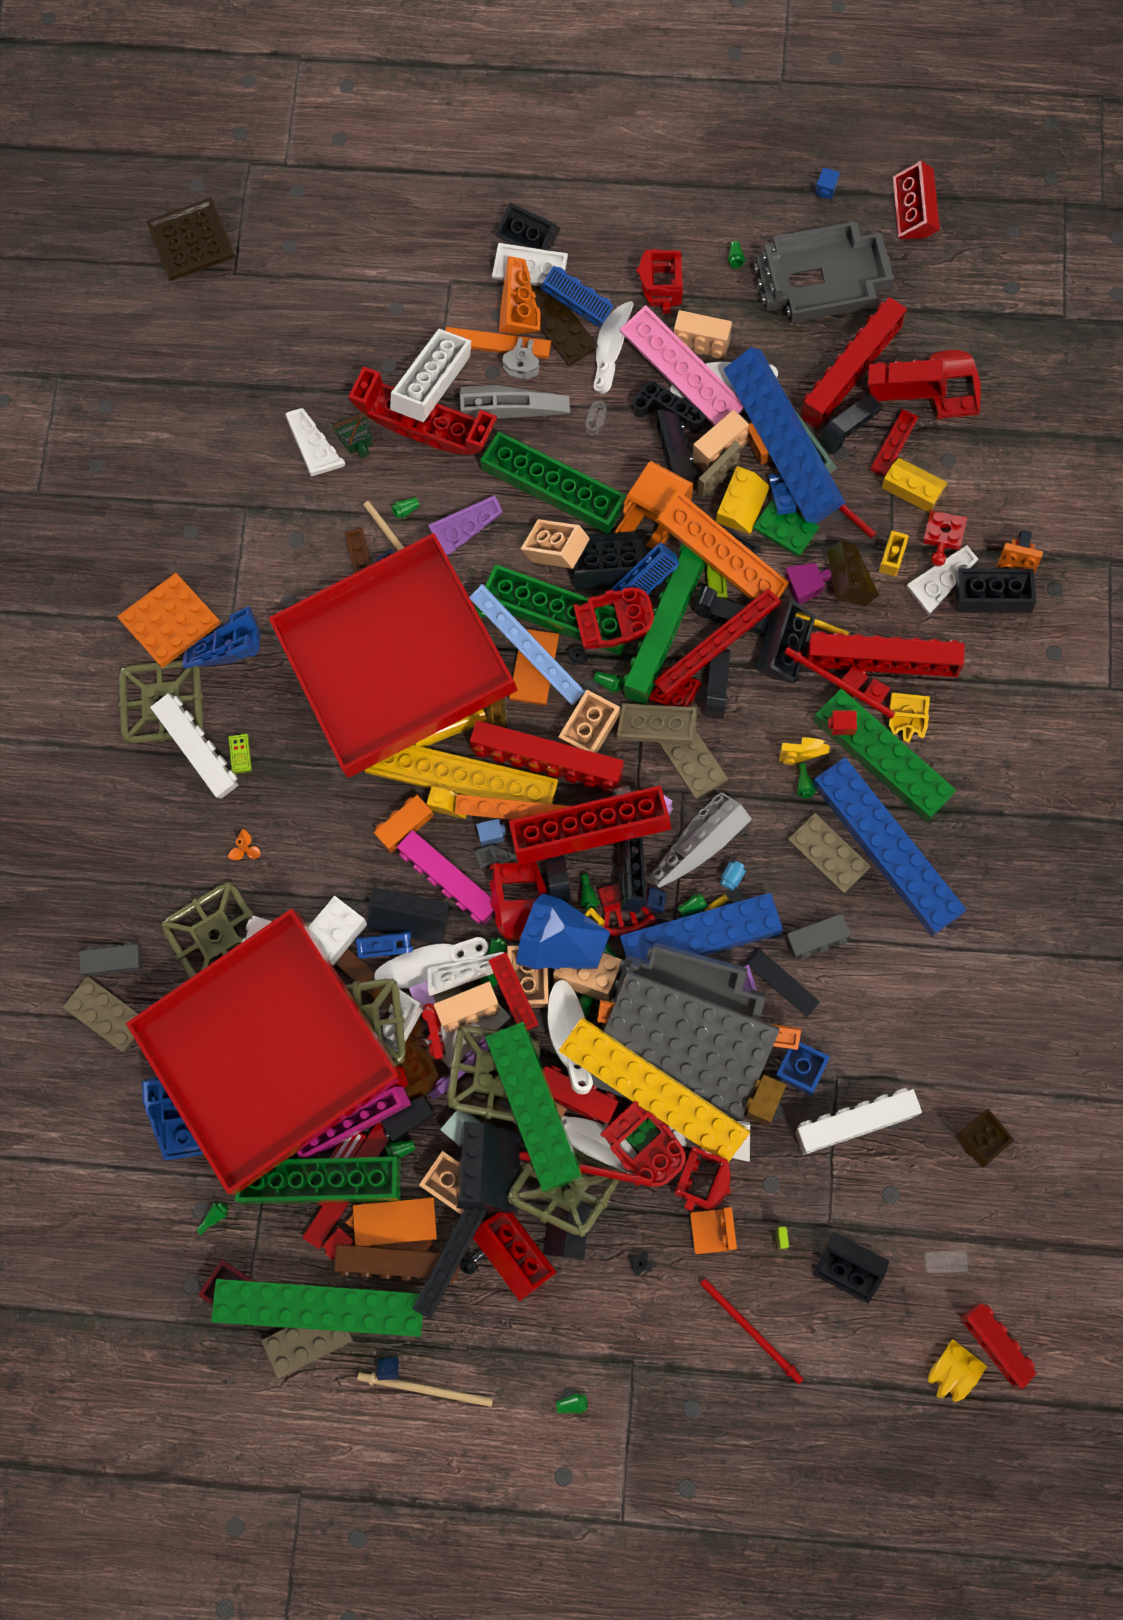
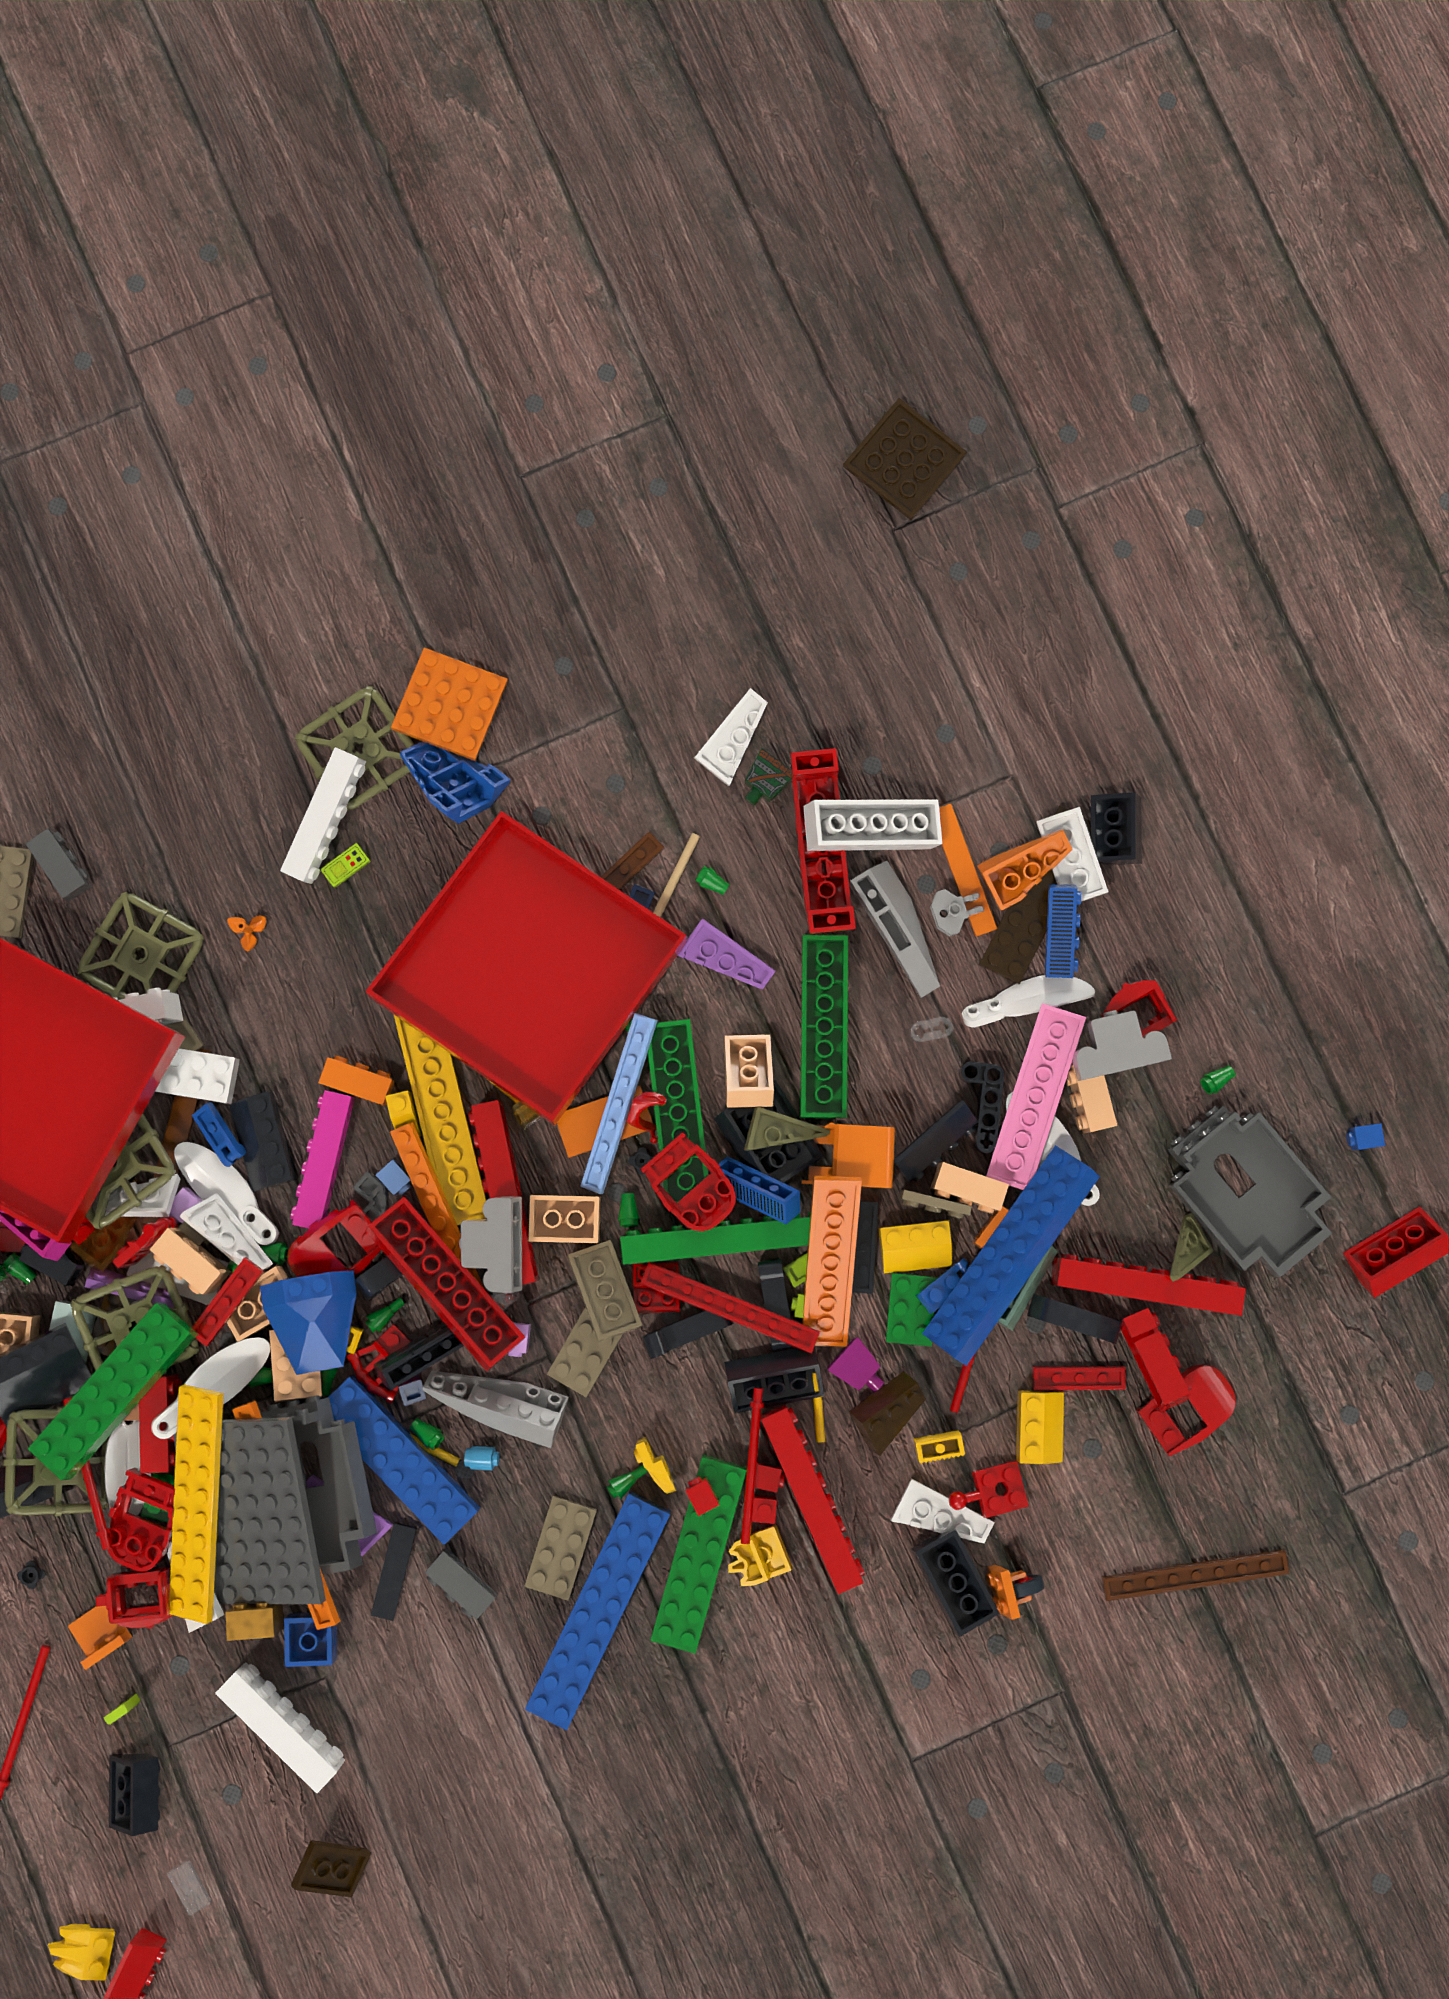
camera: 55 degrees right, 10 degrees up
(538, 631) = (639, 1104): none -> red helmet
(580, 770) = (495, 1244): none -> light grey brick
(607, 546) = (775, 1129): none -> olive wing
(678, 291) = (1118, 1046): none -> light grey brick
(741, 597) = (798, 1305): none -> lime plate
(843, 323) = (1190, 1249): none -> olive wing
(1072, 437) = (1195, 1575): none -> reddish brown tile

